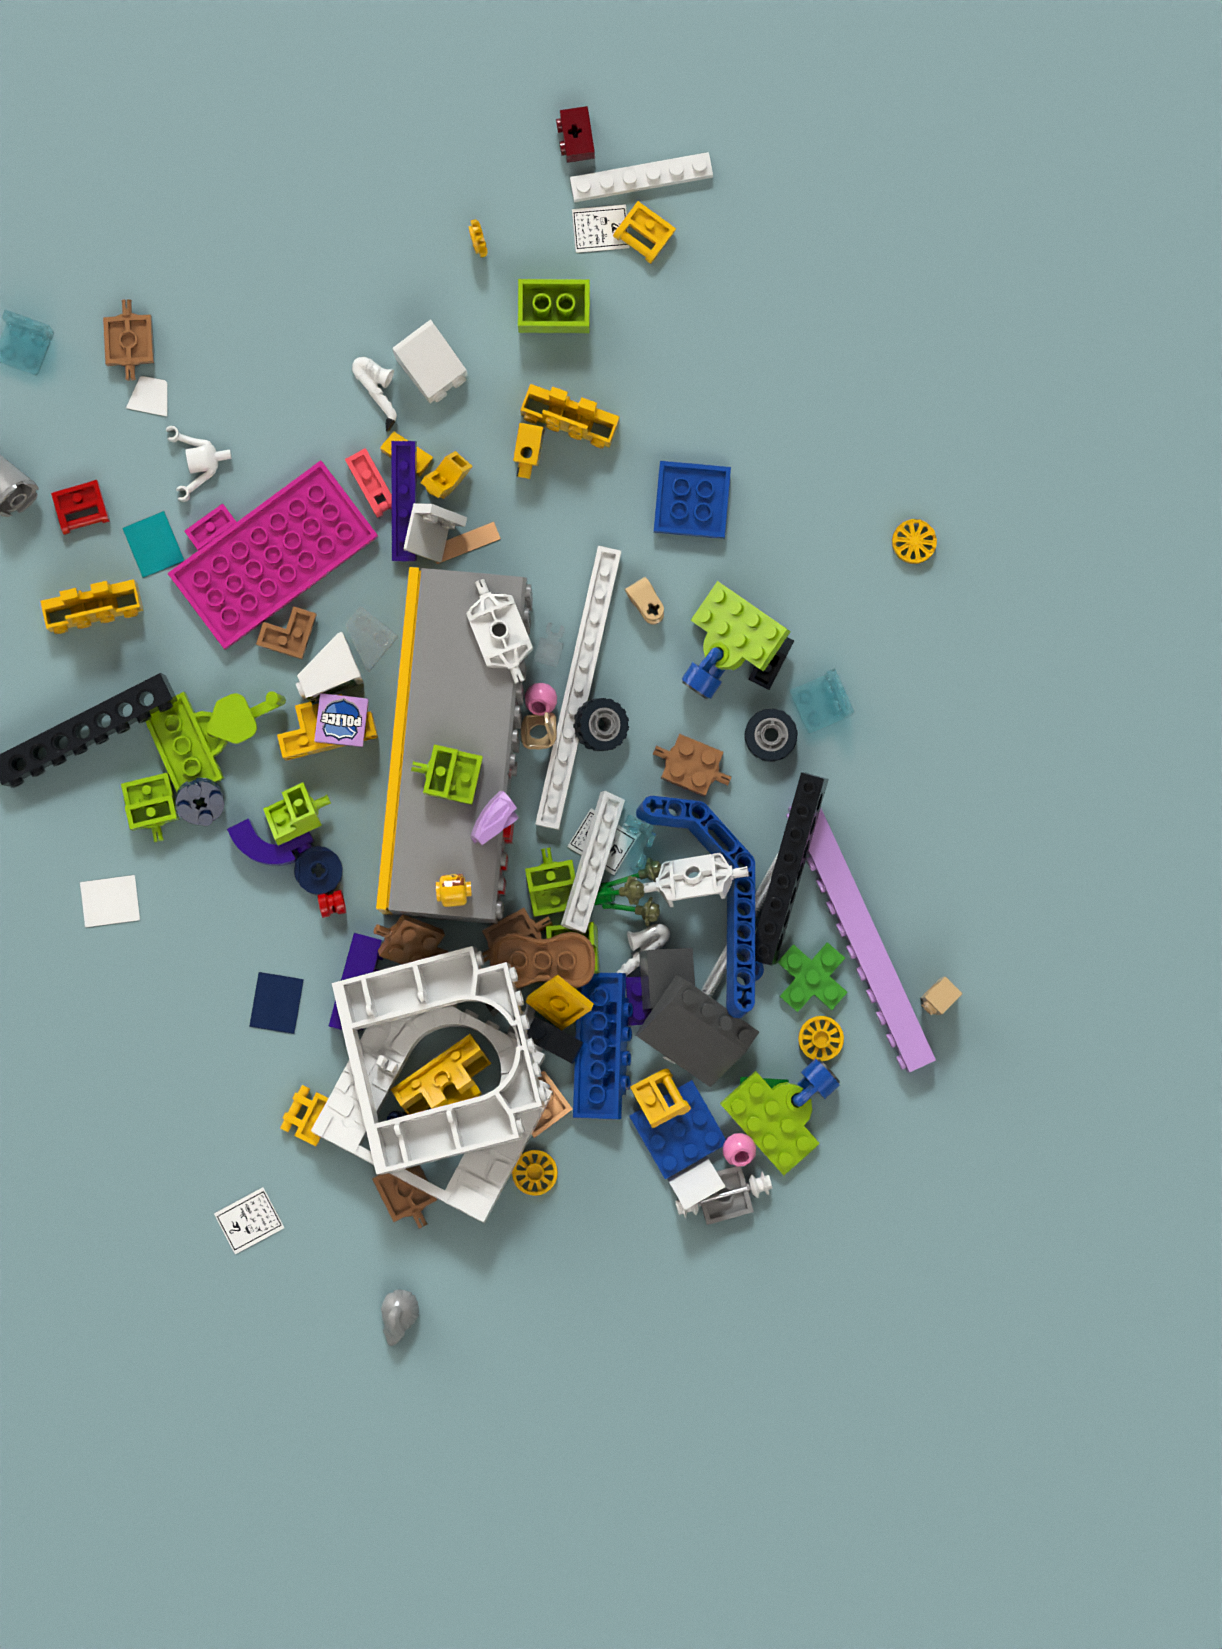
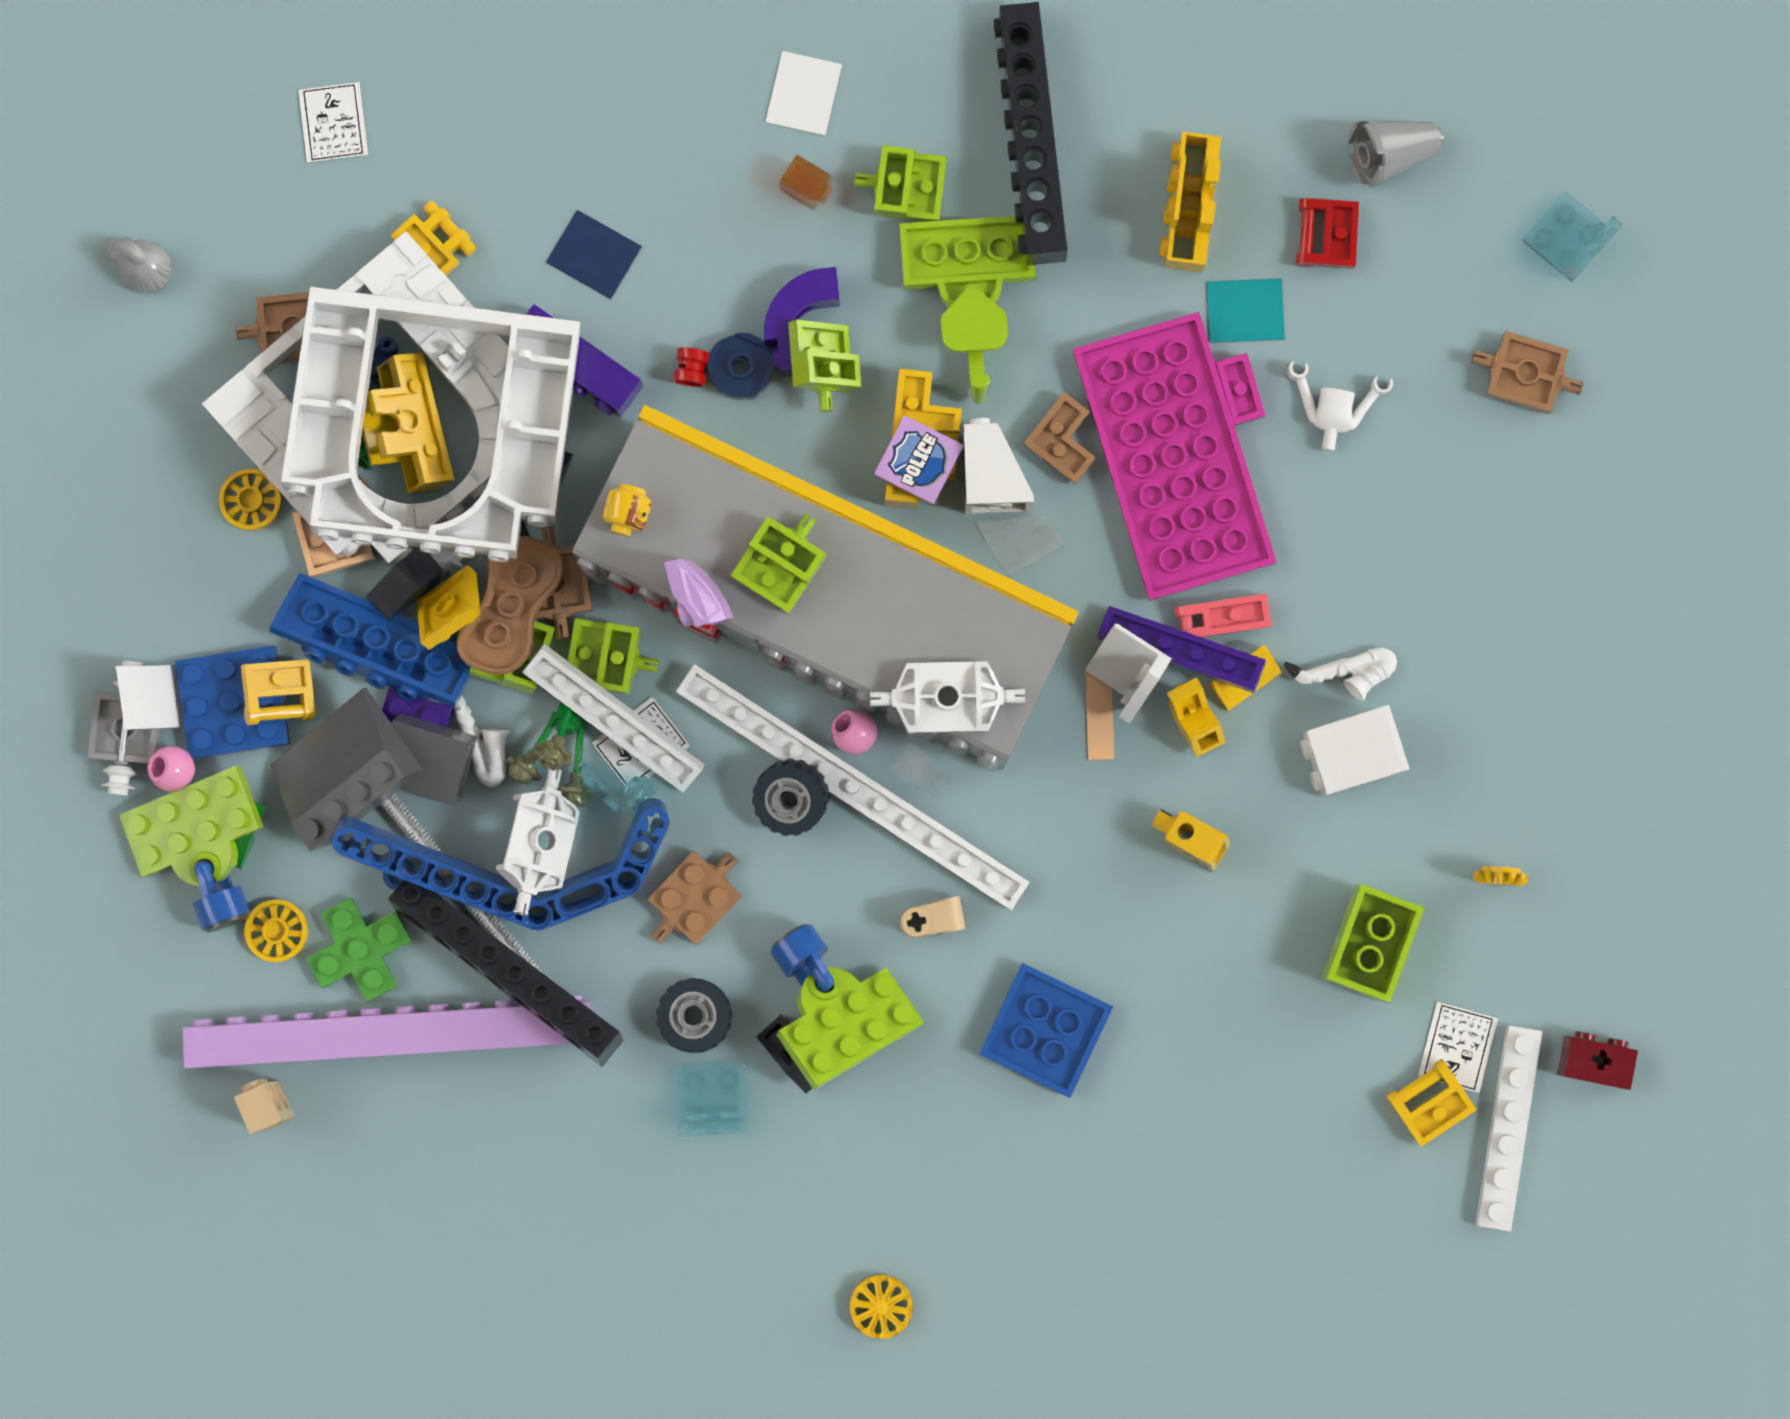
camera: 110 degrees right, 0 degrees up
(149, 396) = (1442, 375): white sticker -> none
(174, 873) = (806, 183): none -> clear orange brick
(203, 814) = (870, 242): plate -> none
(409, 940) = (597, 445): medium nougat plate -> none
(533, 720) = (811, 728): tan piece -> none
(569, 415) = (1217, 909): yellow piece -> none

